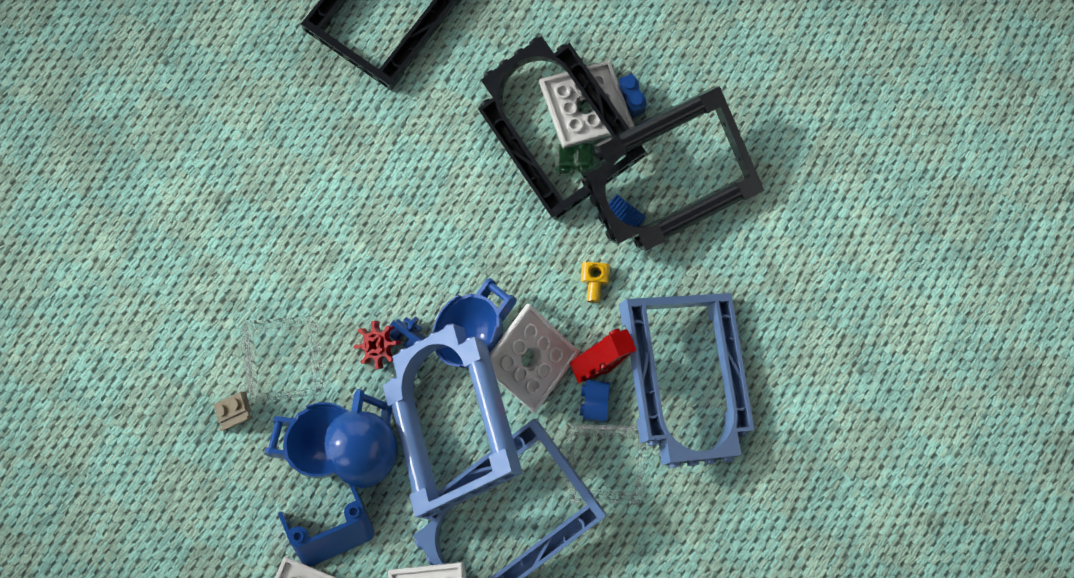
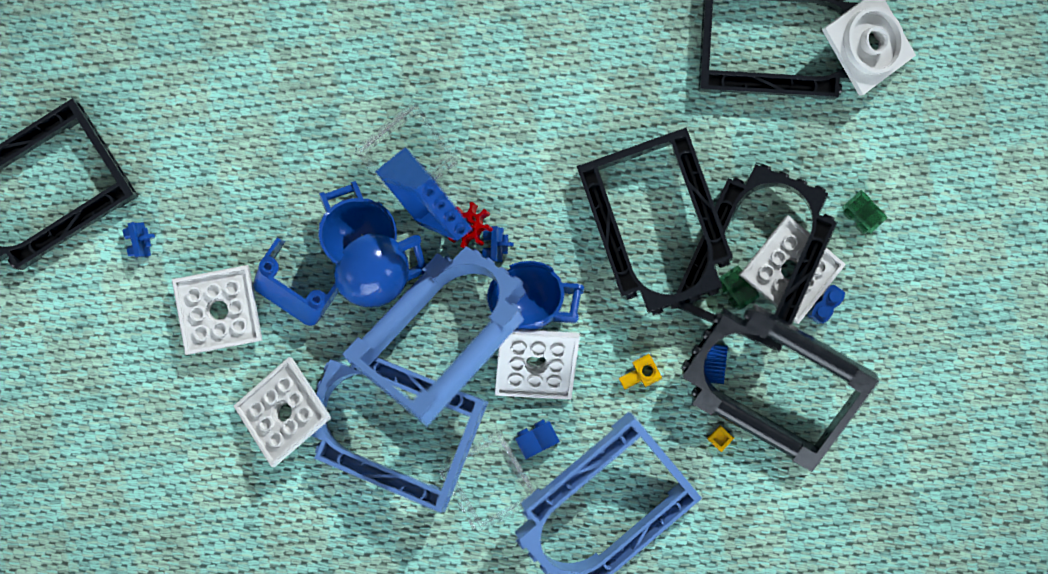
camera: 60 degrees right, 10 degrees up
(233, 411) = (339, 143): dark tan plate -> none
(326, 361) = (422, 196): none -> blue windscreen
(504, 240) = (716, 241): none -> black door
(576, 21) = (864, 212): none -> clear green brick
(603, 356) = (576, 425): red wedge -> none
(690, 249) = (720, 438): none -> yellow tile

